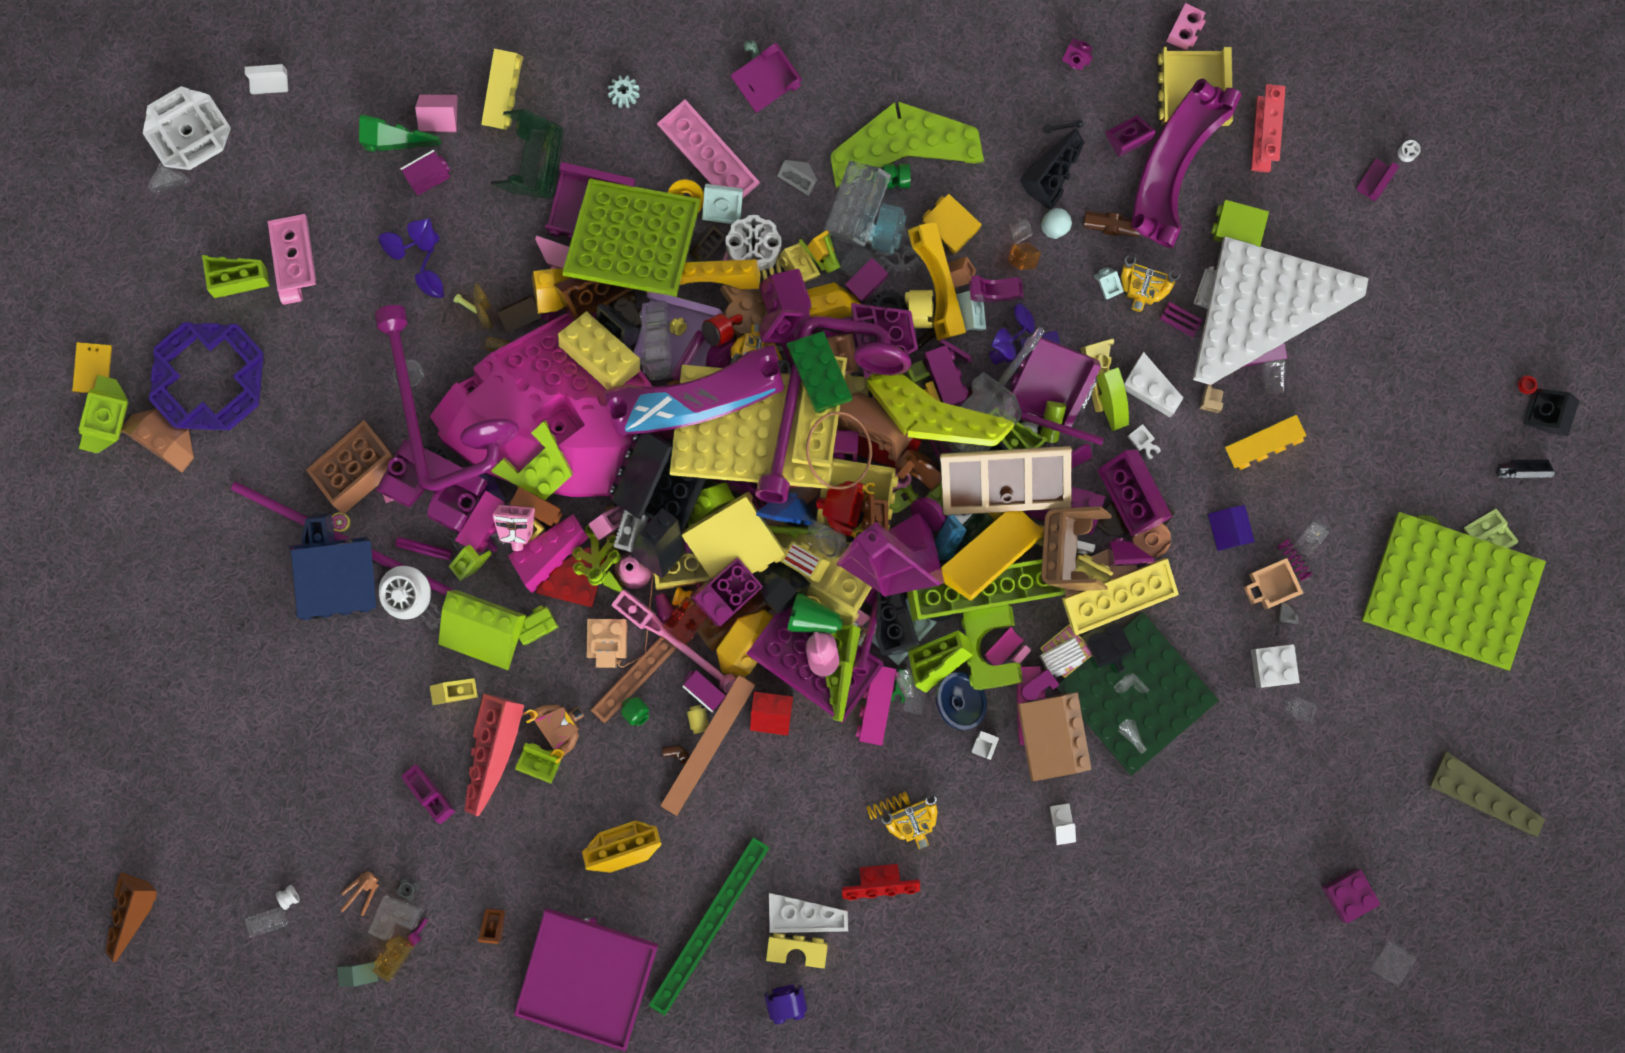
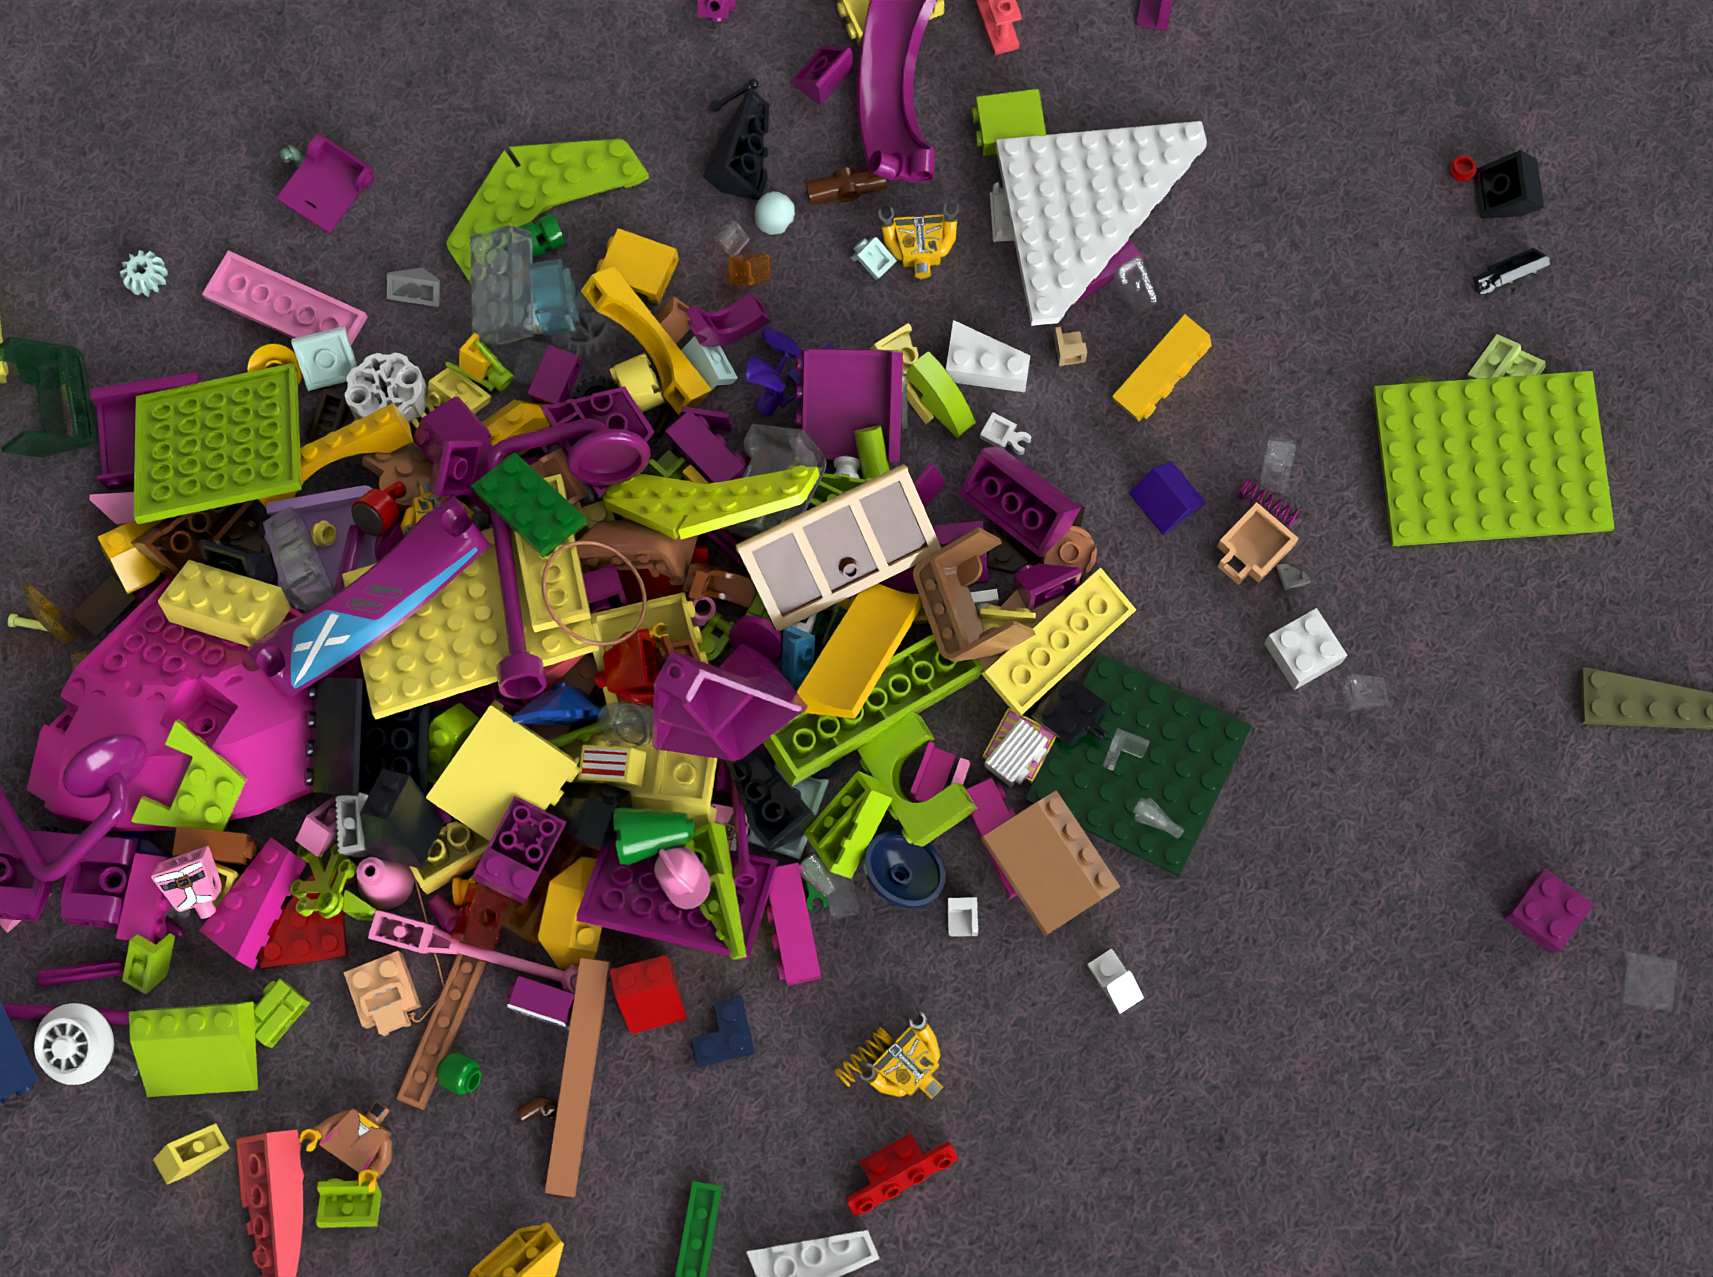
camera: 15 degrees left, 10 degrees down
(698, 719) = (550, 1047): light yellow brick -> none
(812, 759) = (731, 1041): none -> dark blue plate
(1029, 345) = (796, 360): clear bar -> none
(1032, 689) = (999, 799): magenta leg -> none
(1062, 428) = (888, 455): magenta bar -> none
(1185, 313) = (987, 256): magenta tile -> none

